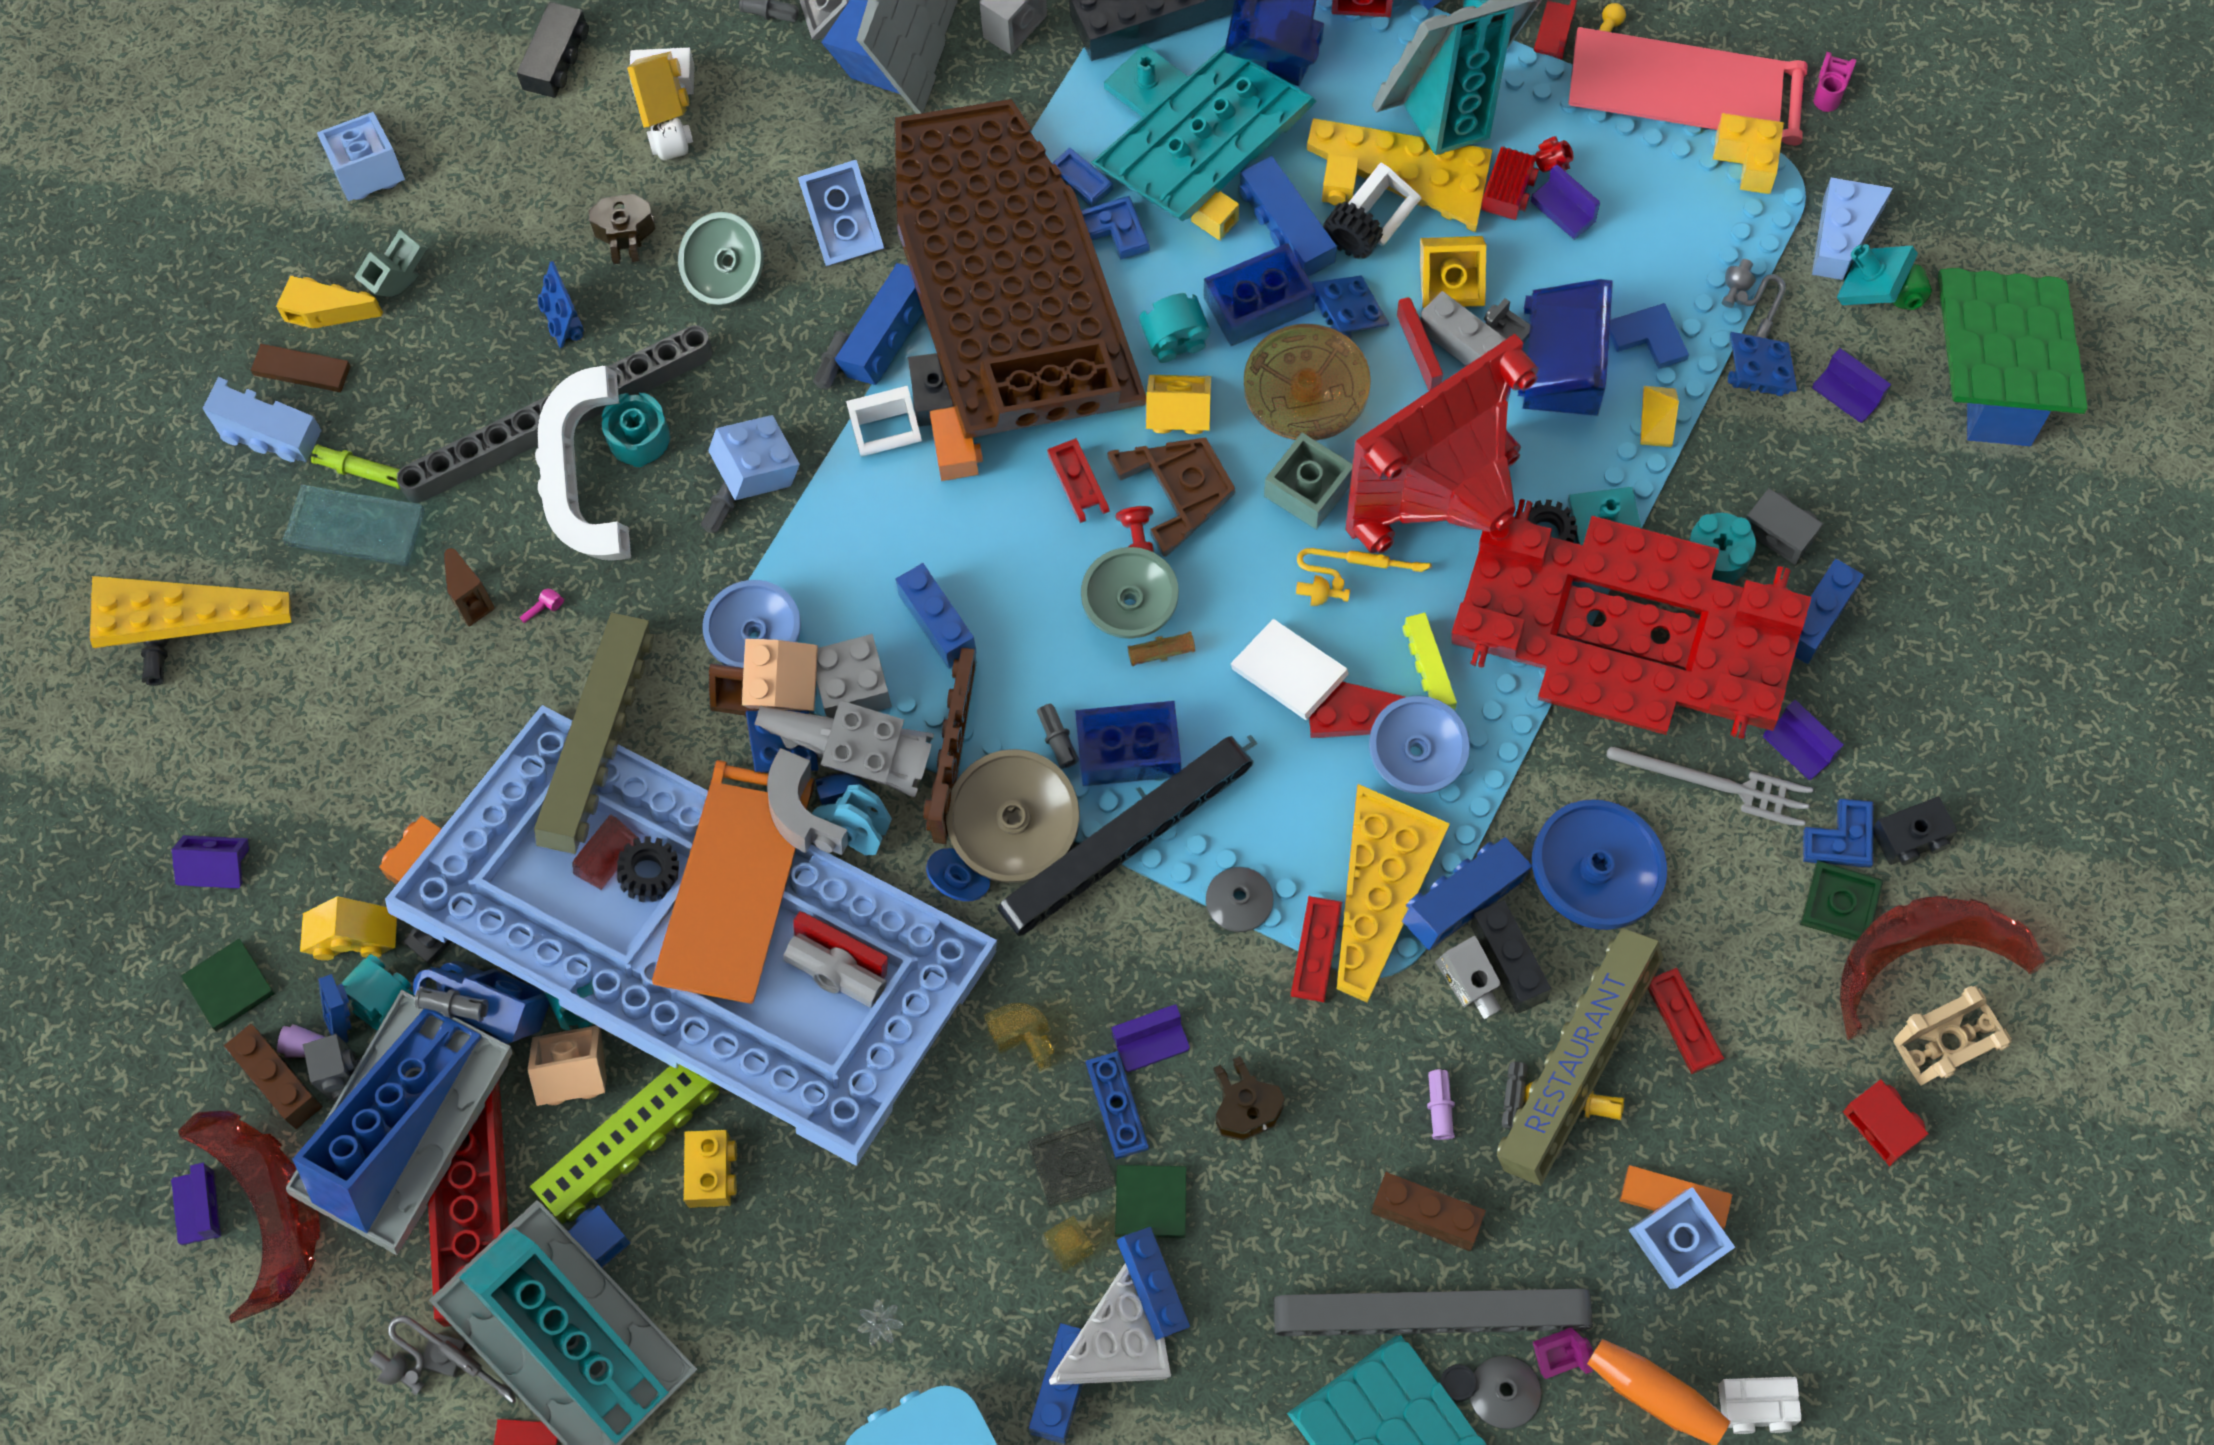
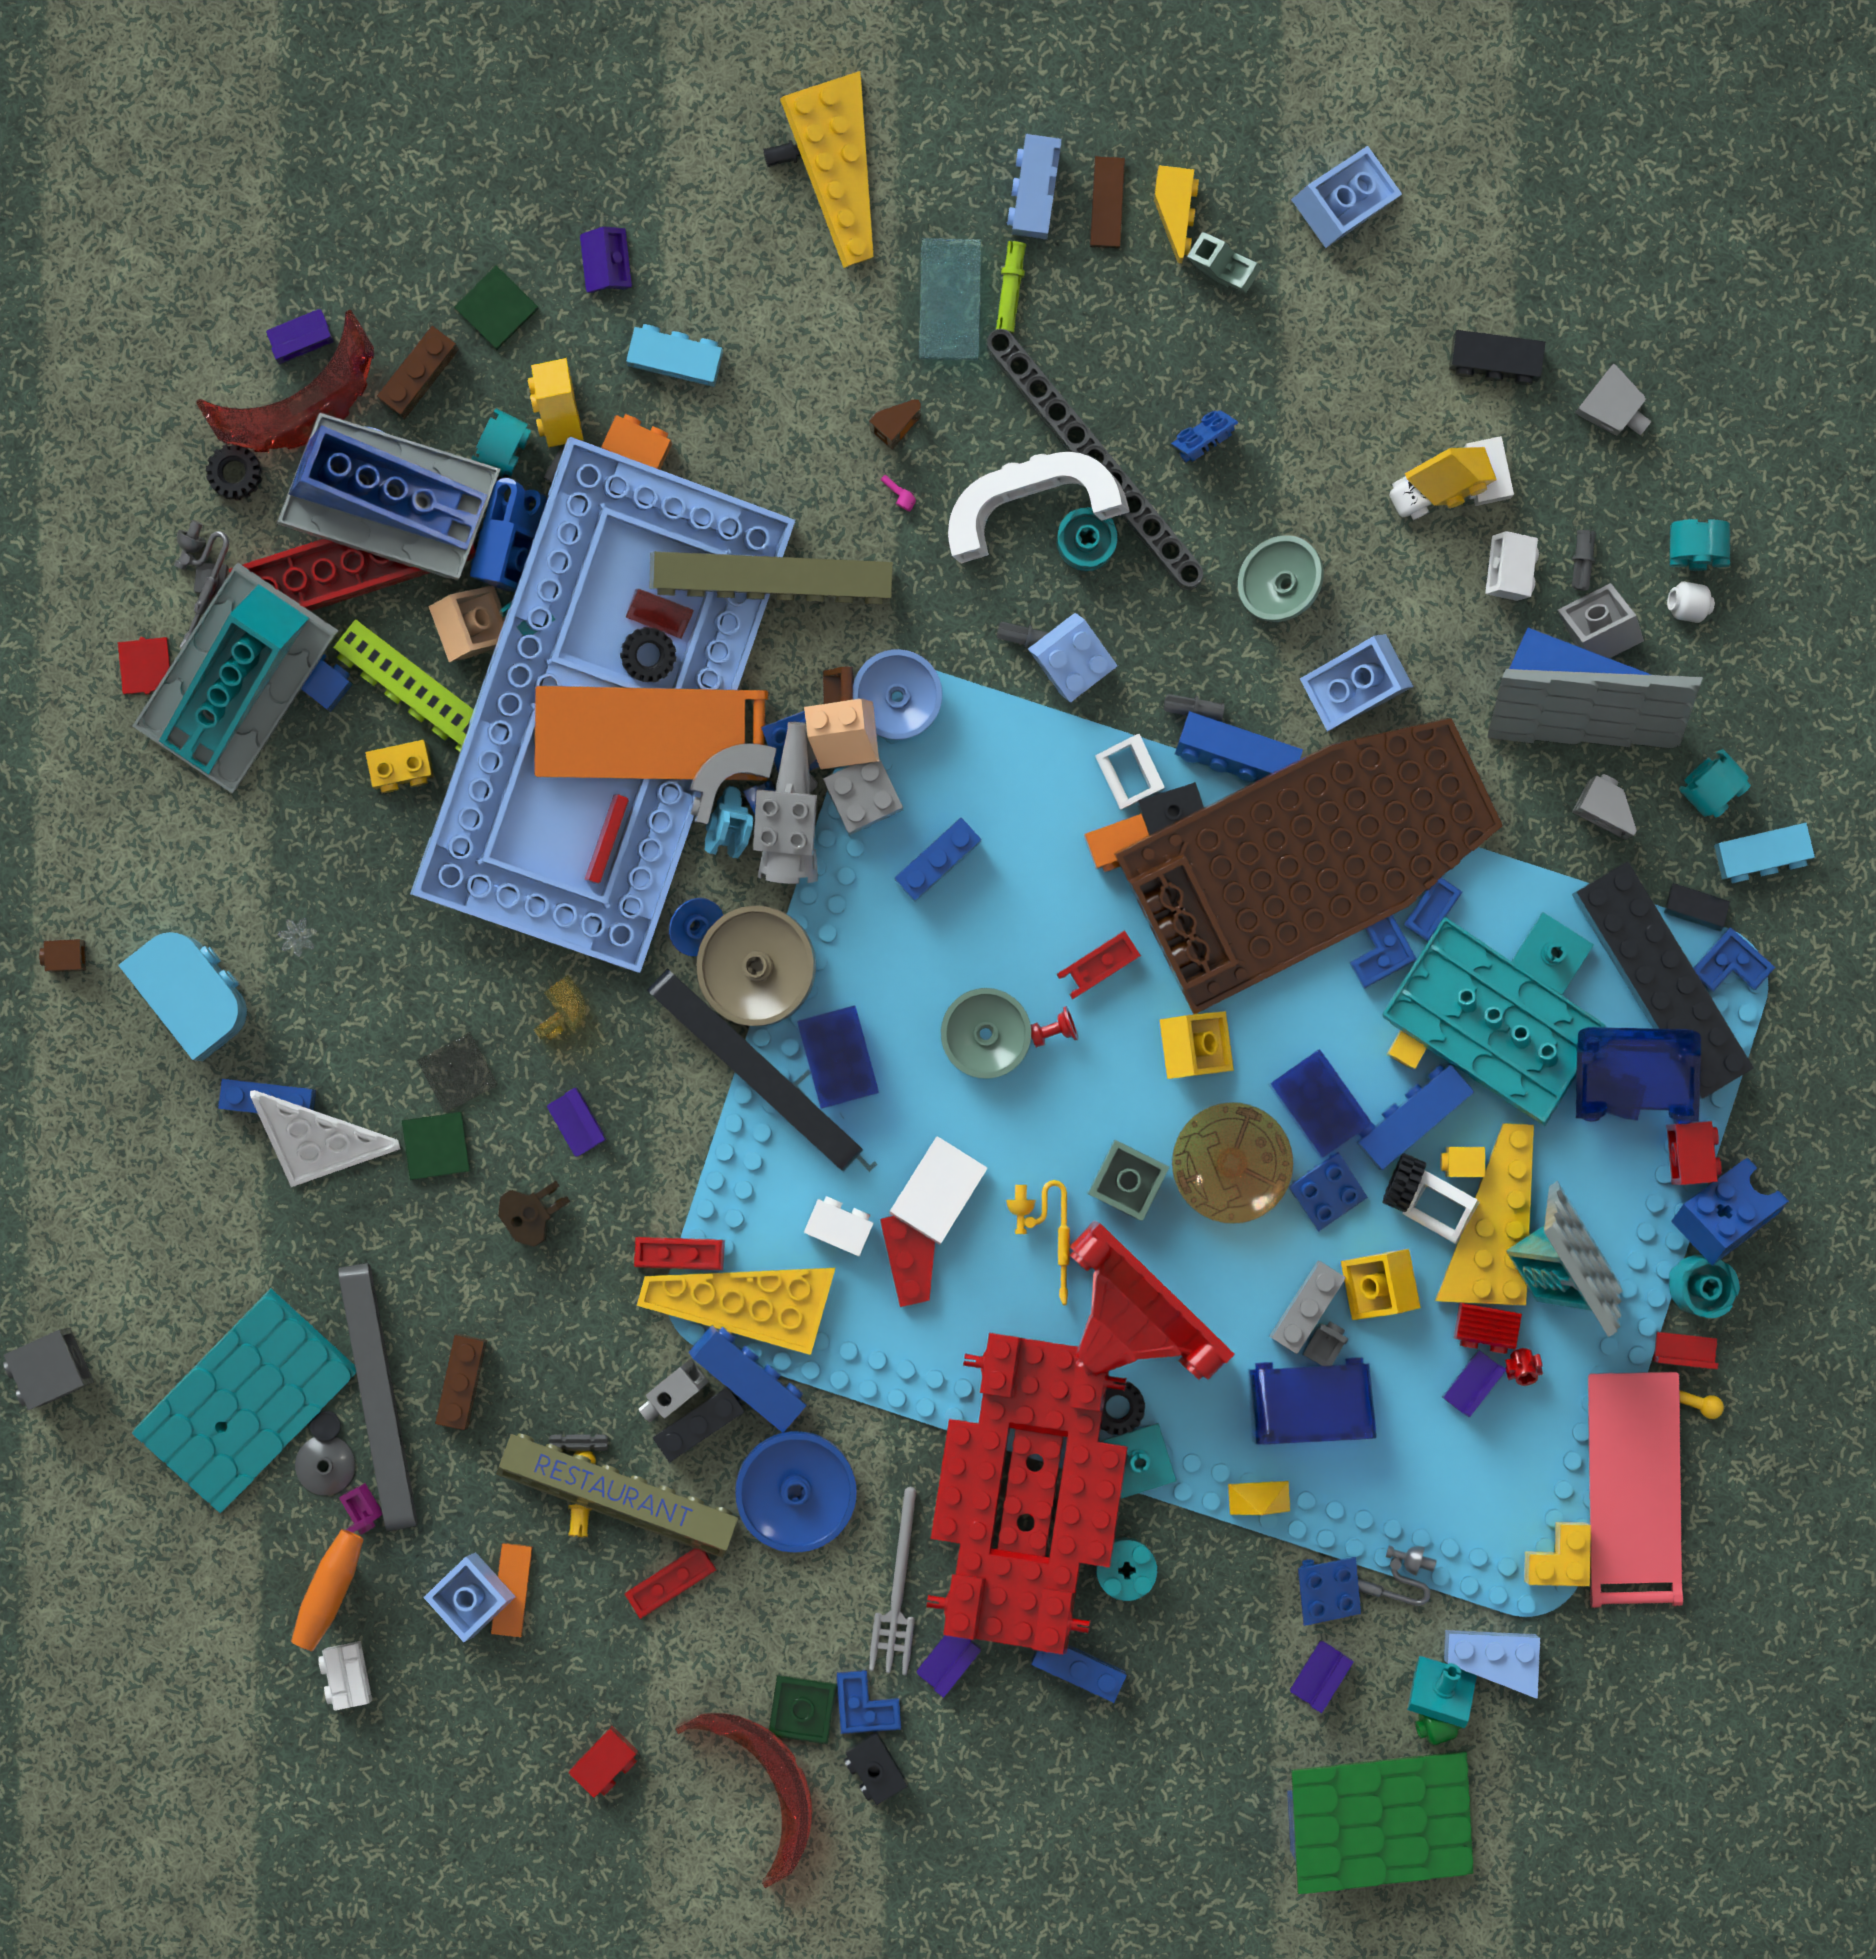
camera: 75 degrees right, 20 degrees up
(292, 1040) = (453, 389): lavender cone -> none
(313, 1290) = (221, 459): none -> black tyre
(330, 1064) = (429, 425): dark grey brick -> none
(334, 802) = (675, 355): none -> medium azure brick
(335, 1007) = (476, 415): blue plate -> none
(451, 1003) = (489, 518): dark grey pin -> none
(620, 226) = (1301, 476): hinge -> none
(759, 62) = (1512, 566): none -> white brick
(834, 970) = (583, 838): light grey piece -> none
(950, 754) = (803, 899): reddish brown wing -> none
(1057, 736) = (840, 991): dark grey axle -> none
(1068, 1243) = (384, 1082): clear yellow brick -> none
(1121, 1123) = (532, 1095): blue tile -> none
(1153, 1283) = (362, 1159): blue plate -> none
(1161, 648) = (933, 1050): clear orange pin -> none
(1175, 327) = (1269, 1029): teal brick -> none
(1189, 477) = (1118, 1068): reddish brown wing -> none
(1239, 914) = (731, 1174): dark grey dish -> none
(1313, 774) = (839, 1226): none -> white brick
(1419, 343) = (1294, 1263): red tile -> none
(1423, 724) = (864, 1334): medium blue dish -> none
(1428, 659) = (966, 1316): neon yellow piece -> none
(1441, 1105) = (559, 1380): lavender axle -> none
(1655, 329) = (1352, 1481): blue tile -> none
(1783, 526) = (1159, 1625): dark grey brick -> none
(1833, 81) = (1671, 1632): dark pink piece -> none
(1948, 1020) = (674, 1826): tan piece -> none

